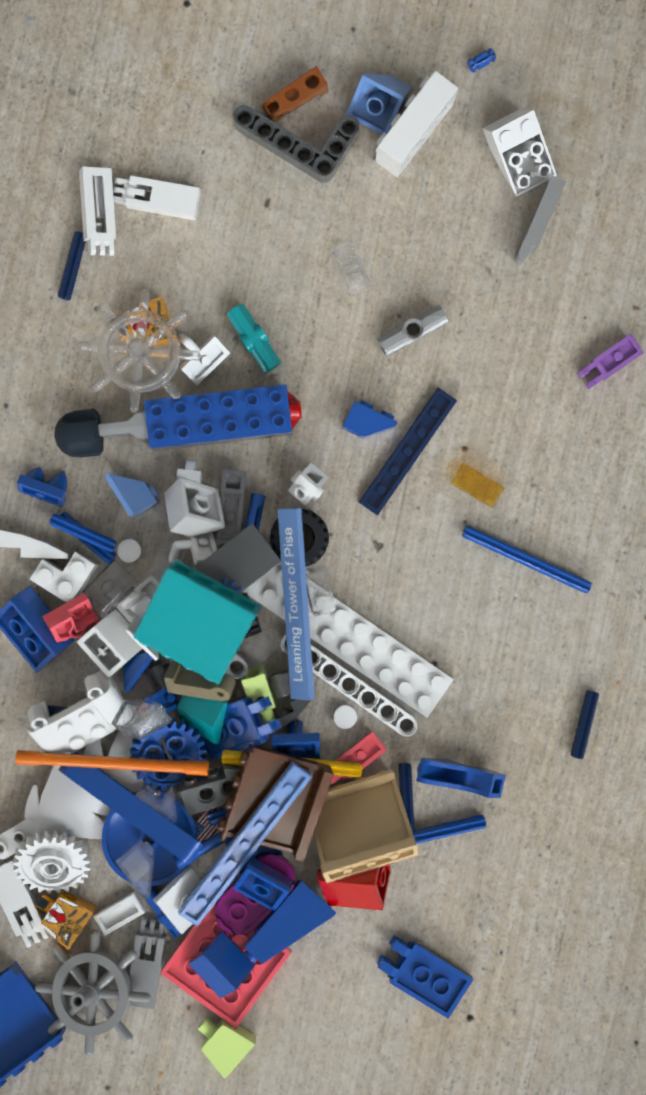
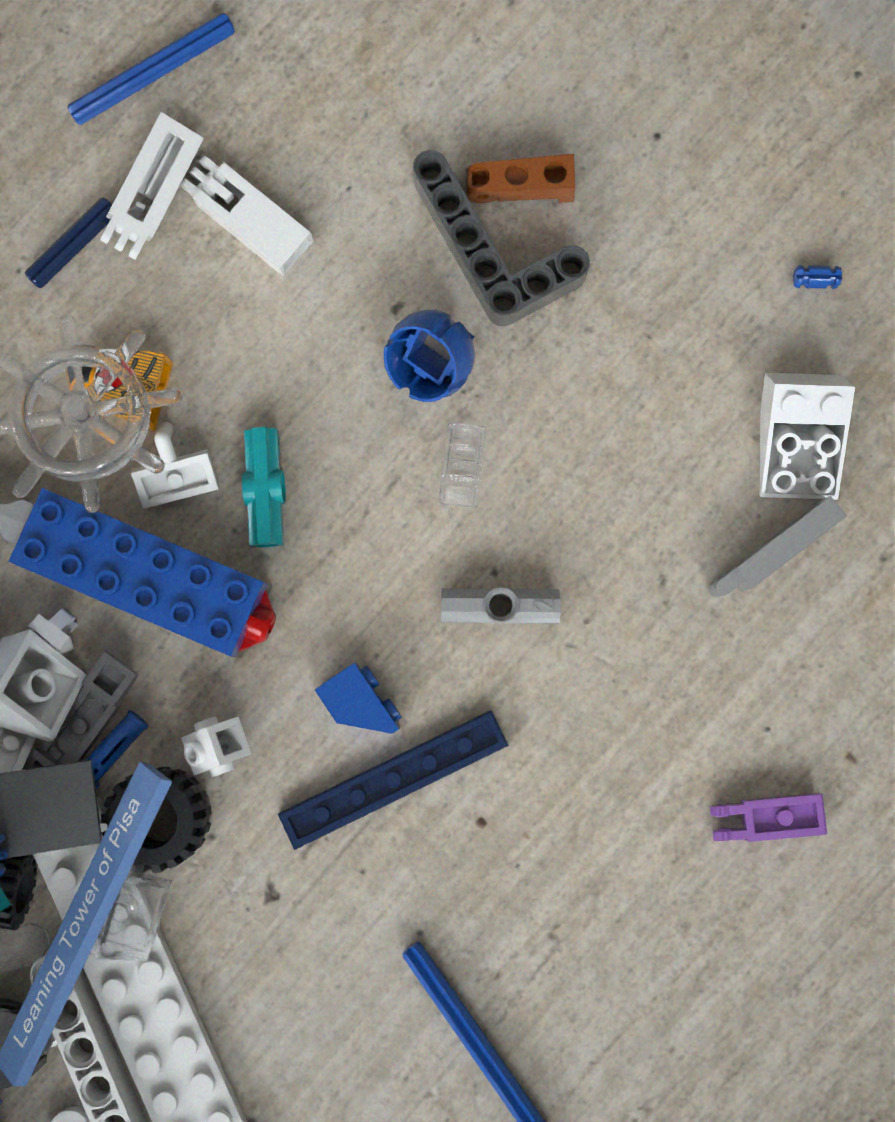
camera: 30 degrees right, 5 degrees down
(57, 145) = (151, 69): none -> blue axle
(299, 228) = (420, 368): none -> blue piece
(378, 101) = (636, 253): medium blue slope -> none
(416, 123) = (671, 311): white brick -> none
(477, 485) = (468, 890): clear yellow slope -> none

